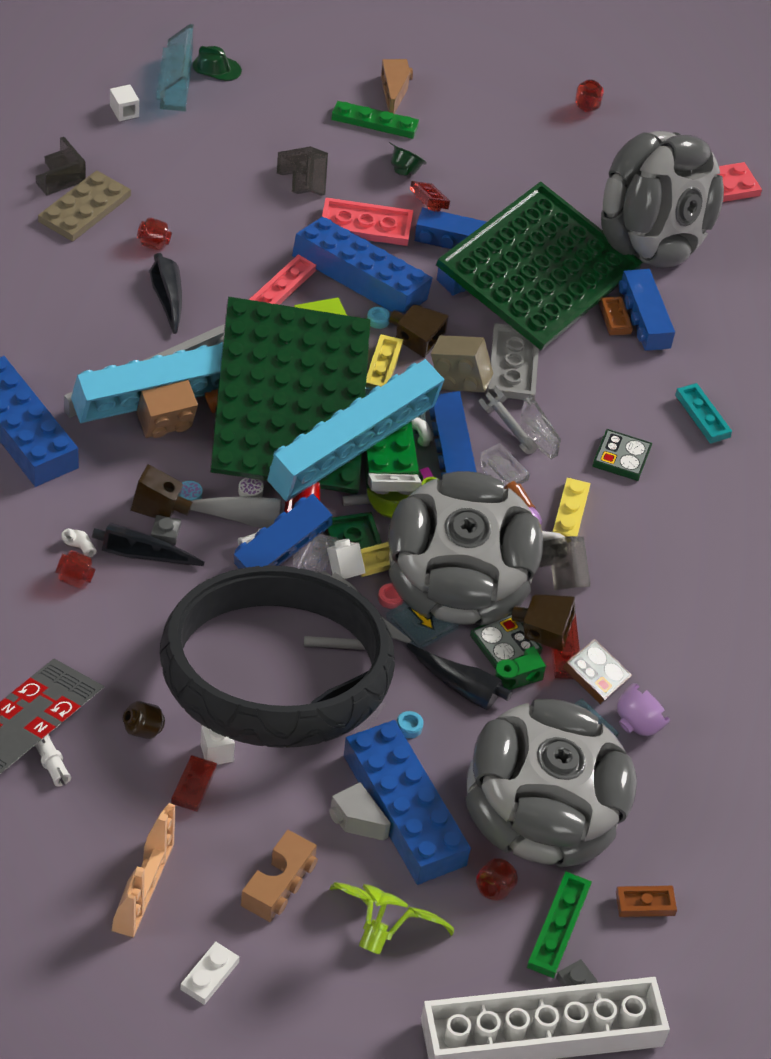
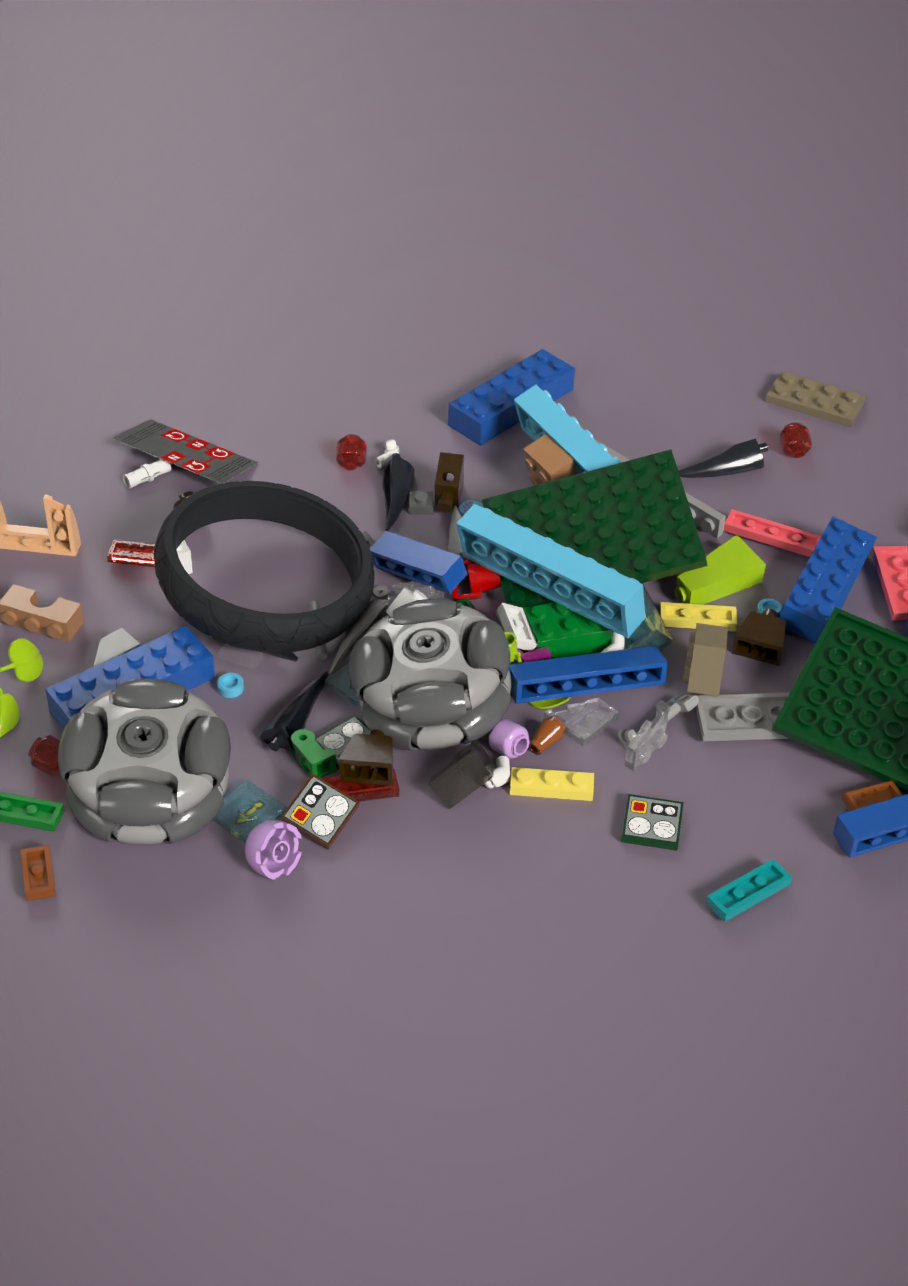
camera: 85 degrees right, 5 degrees down
(65, 167) = (848, 379): clear smoke panel -> none

